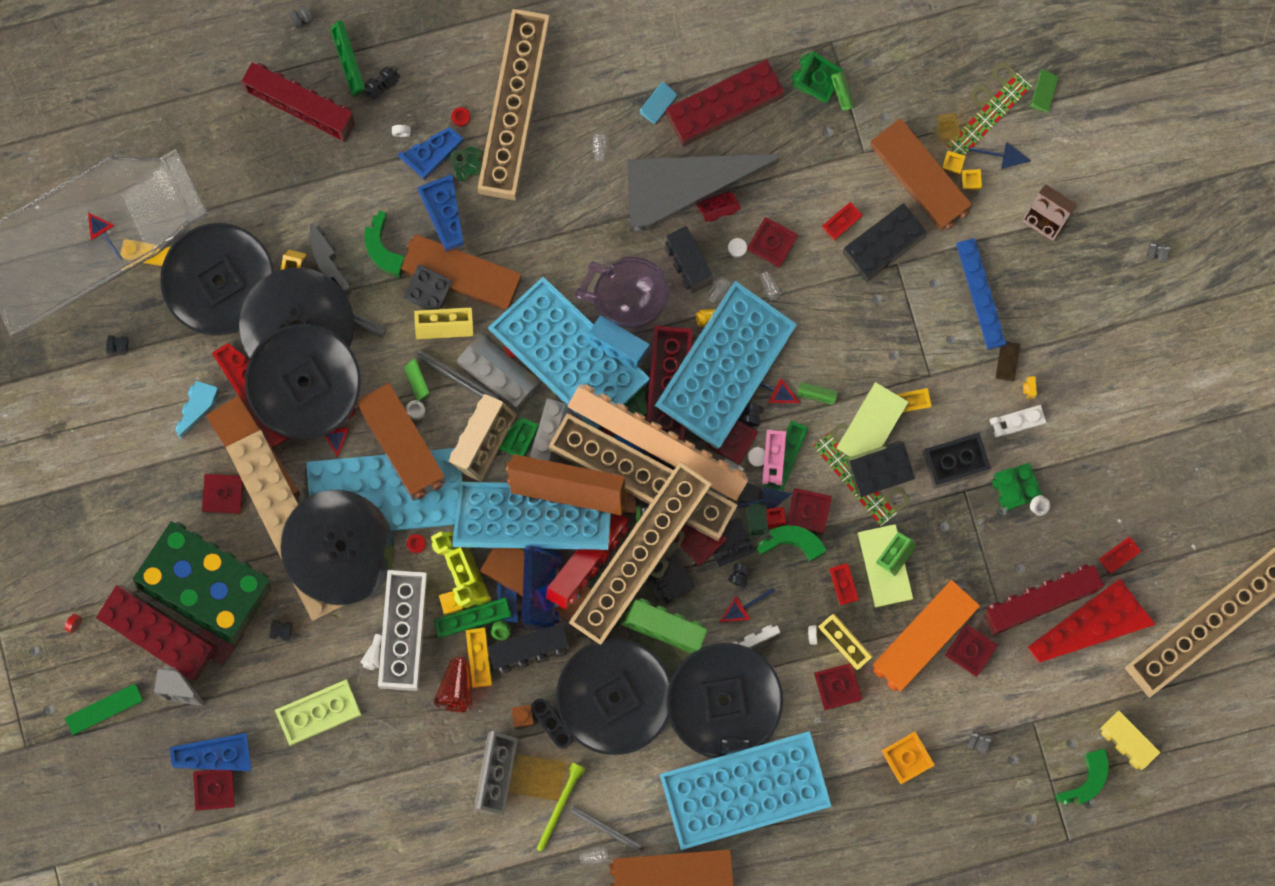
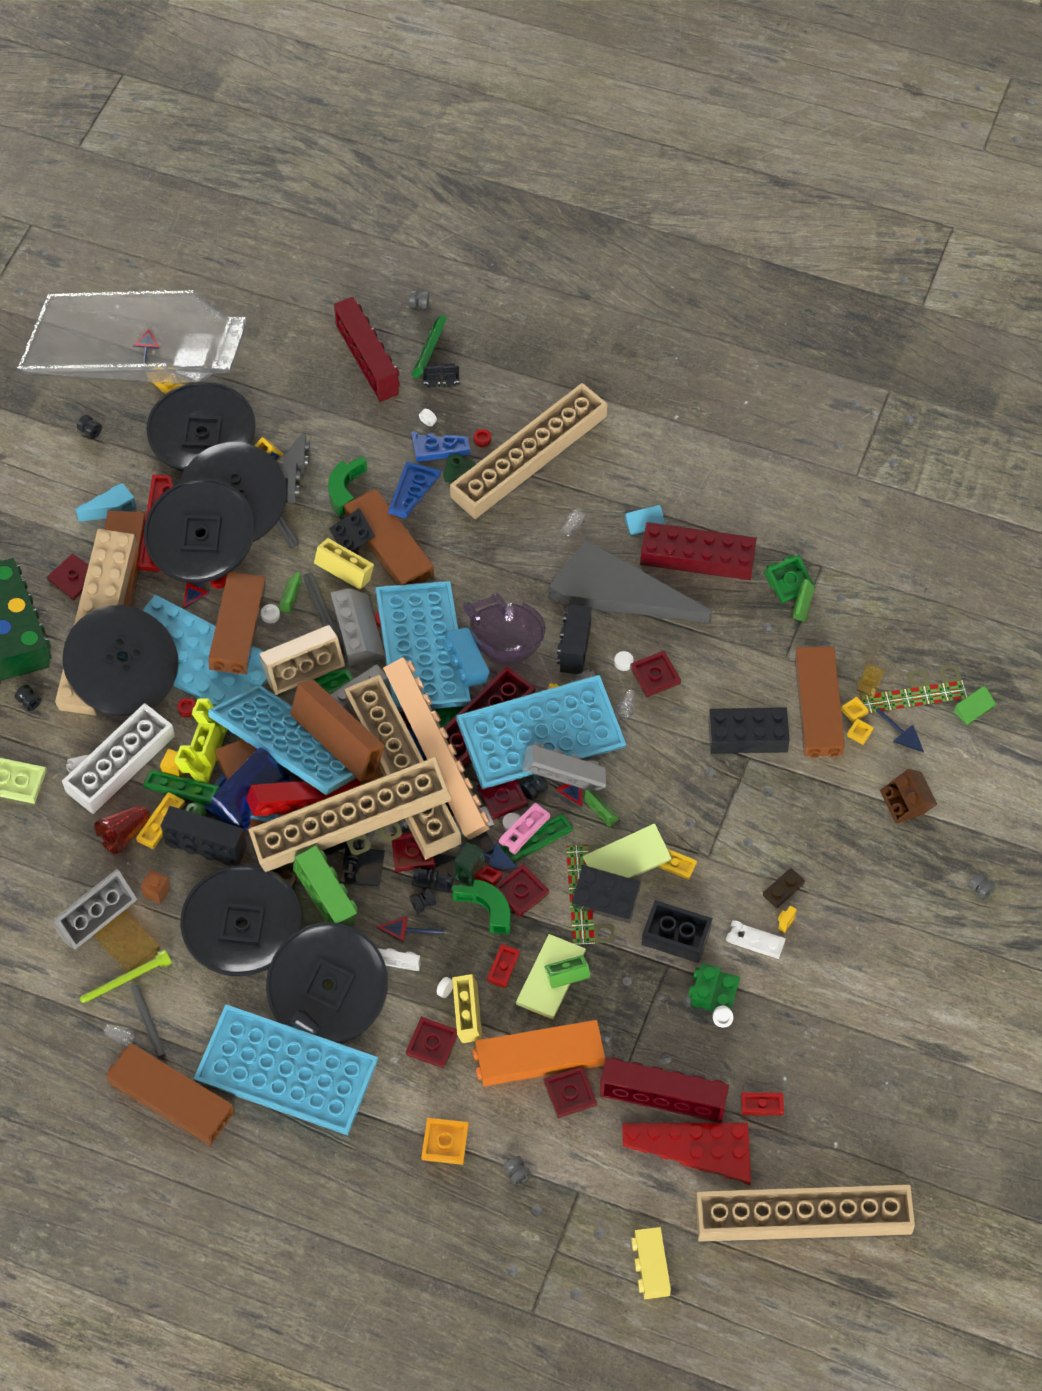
camera: 35 degrees right, 20 degrees down
(558, 730) = (173, 899): black beam -> none
(718, 206) = (638, 620): dark red plate -> none
(771, 385) = (564, 768): none -> light grey slope
(842, 221) = (726, 694): red plate -> none
(981, 294) = (800, 821): blue plate -> none
(1096, 777) = (590, 1276): green arch -> none

